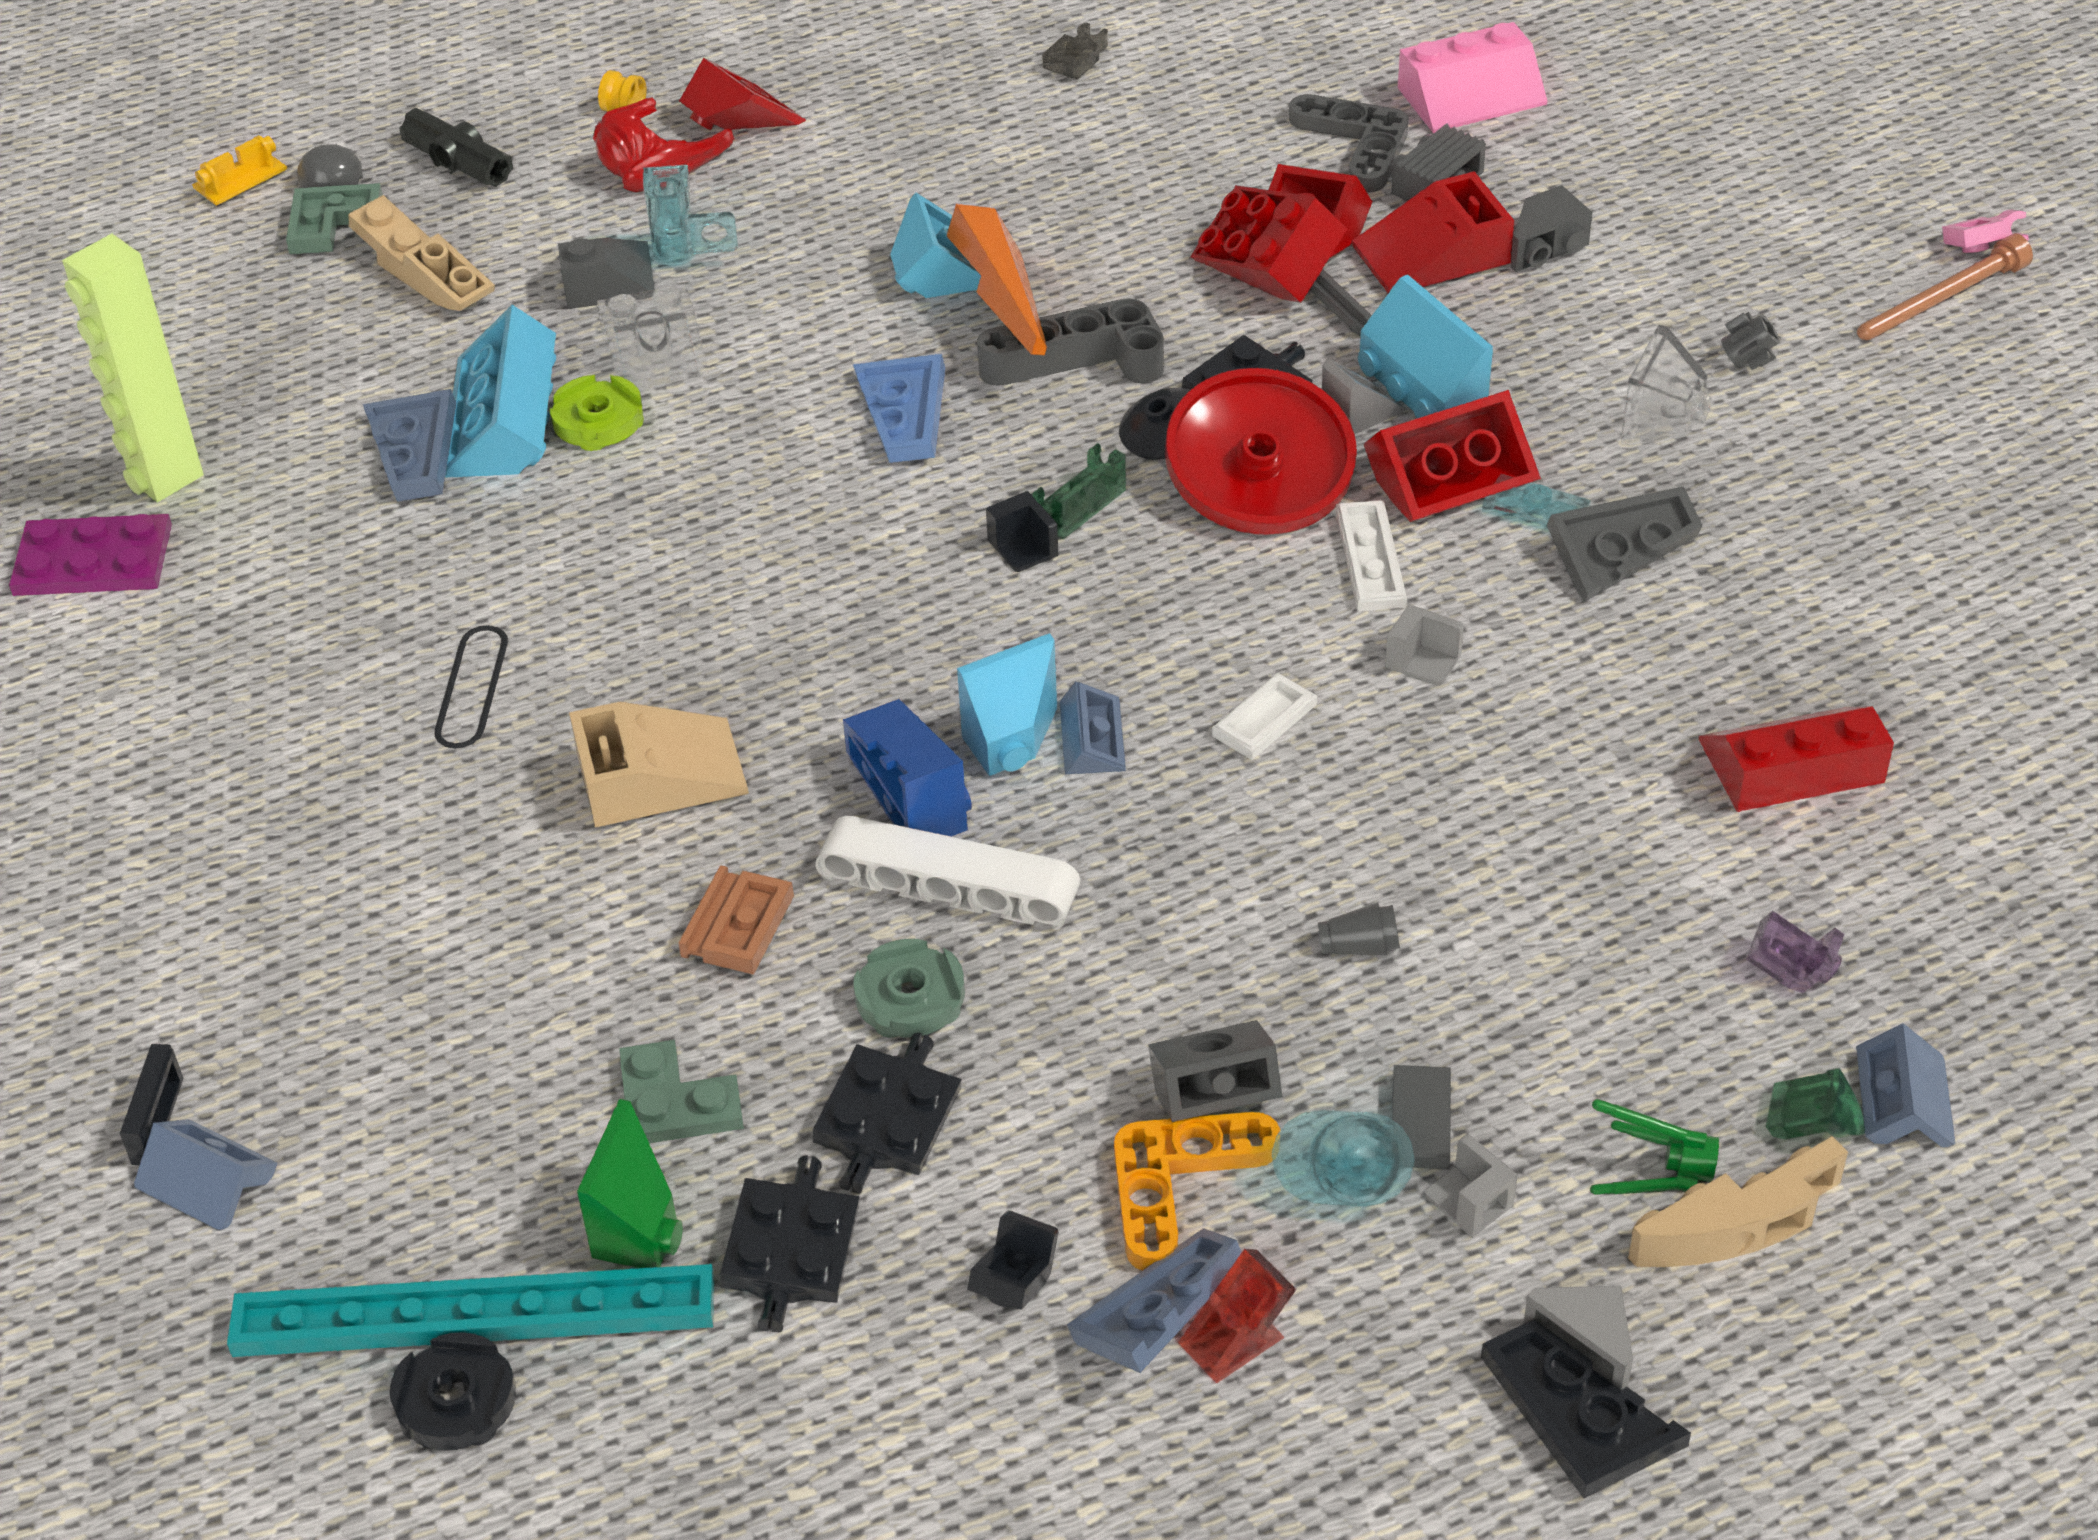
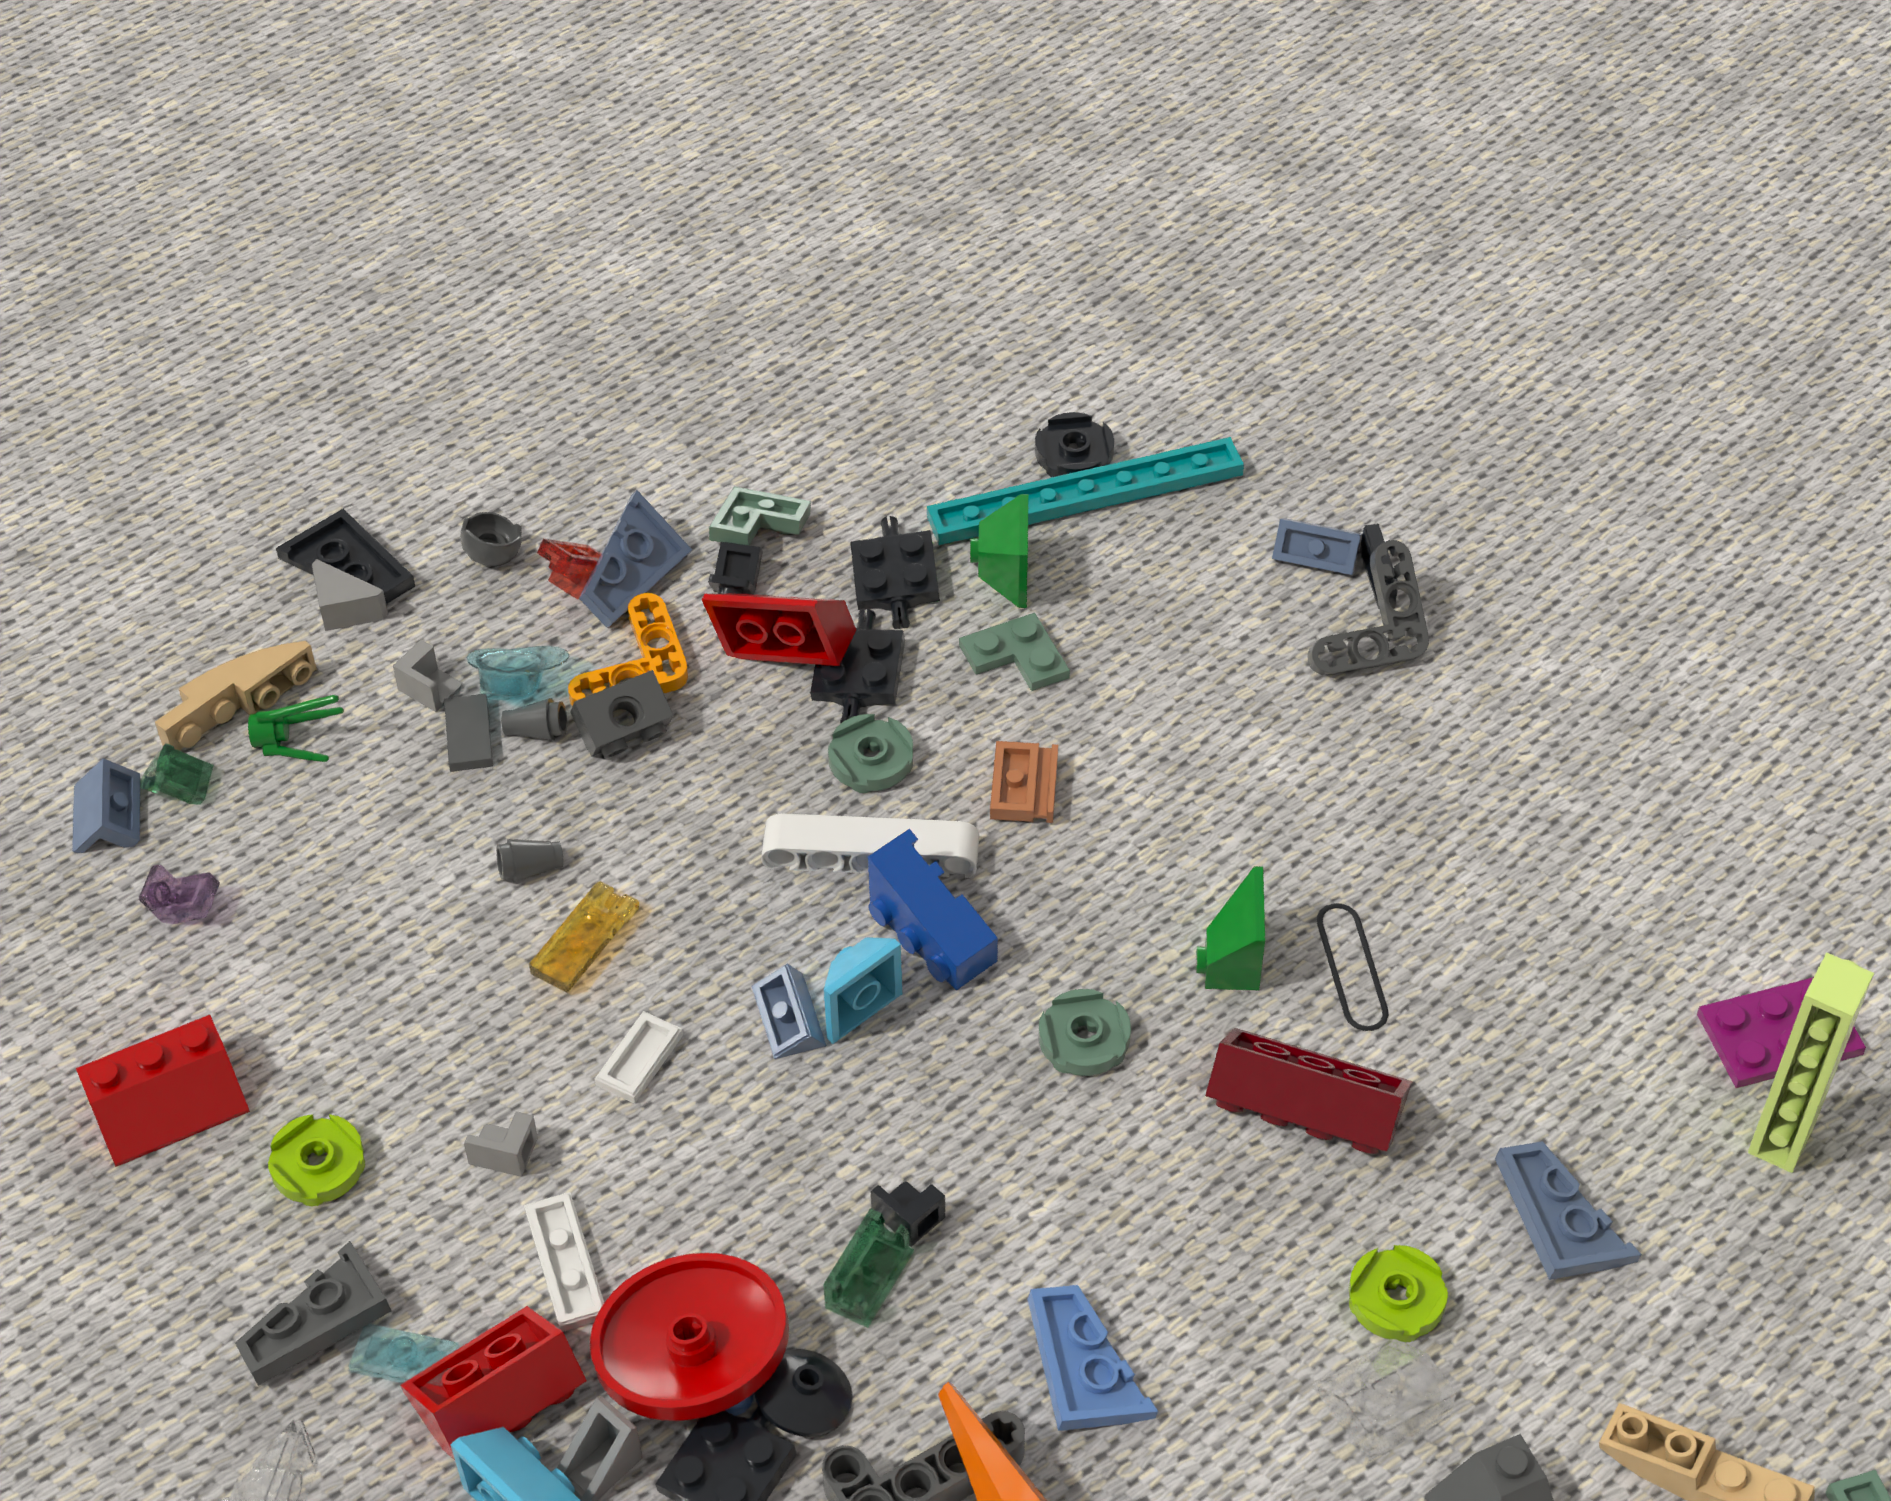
camera: 165 degrees right, 5 degrees up
(180, 1009) = (1394, 622): none -> dark grey beam
(502, 398) = (1499, 1280): medium azure slope -> none
(579, 673) = (1236, 939): none -> green slope
(581, 567) = (1308, 1090): none -> dark red slope
(653, 760) = (1148, 891): tan slope -> none
(766, 672) = (1082, 1055): none -> sand green plate
(962, 1365) = (750, 509): none -> sand green plate
(976, 1122) = (781, 627): none -> red slope
(1305, 837) = (583, 936): none -> clear yellow plate
(1323, 1093) = (537, 720): none -> dark grey cone
(1354, 1366) = (490, 538): none -> dark grey hair
(1623, 690) = (320, 1182): none -> lime plate

